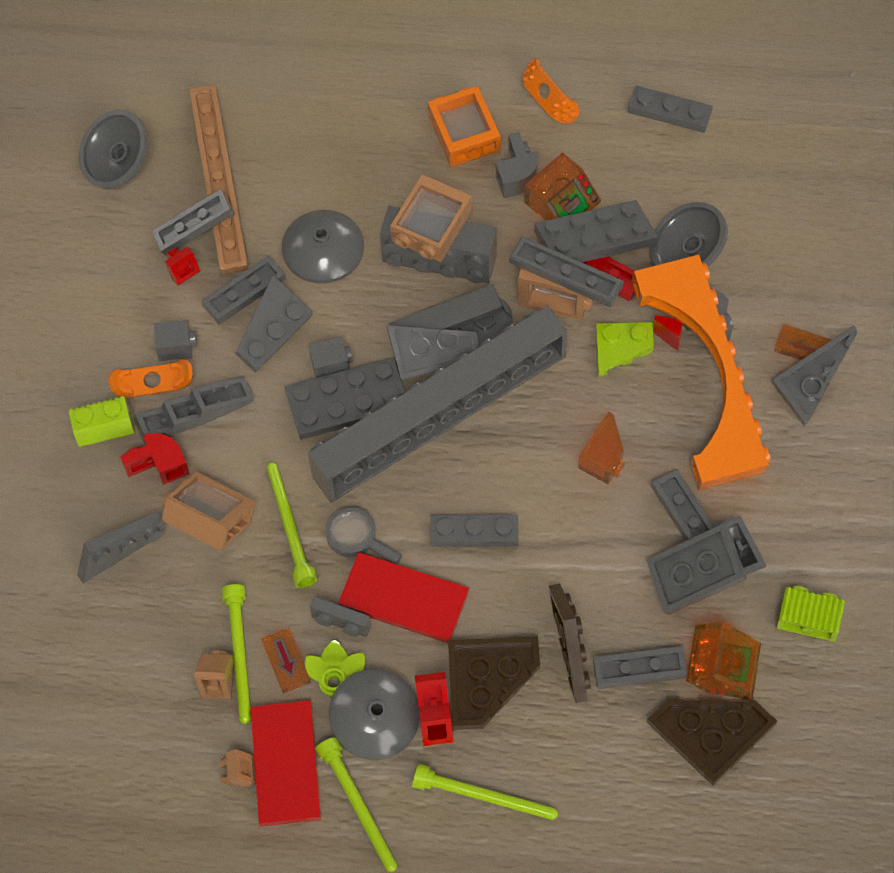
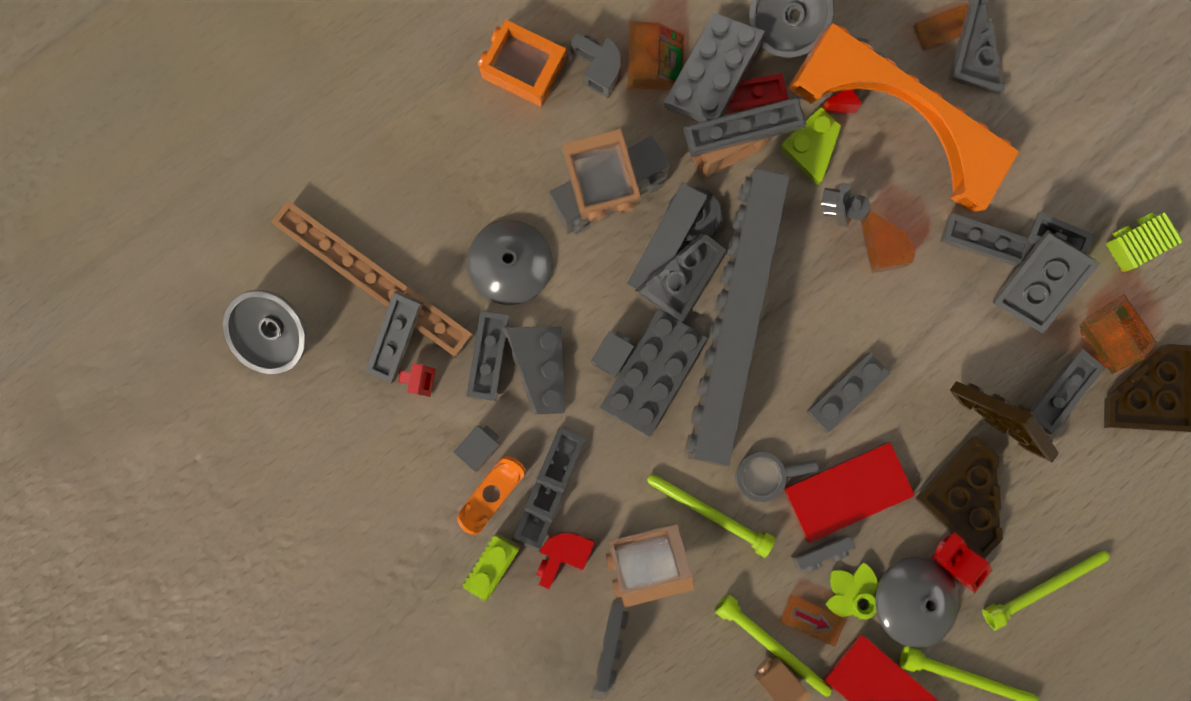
camera: 50 degrees left, 20 degrees up
(596, 392) = (843, 204): none -> dark grey hips

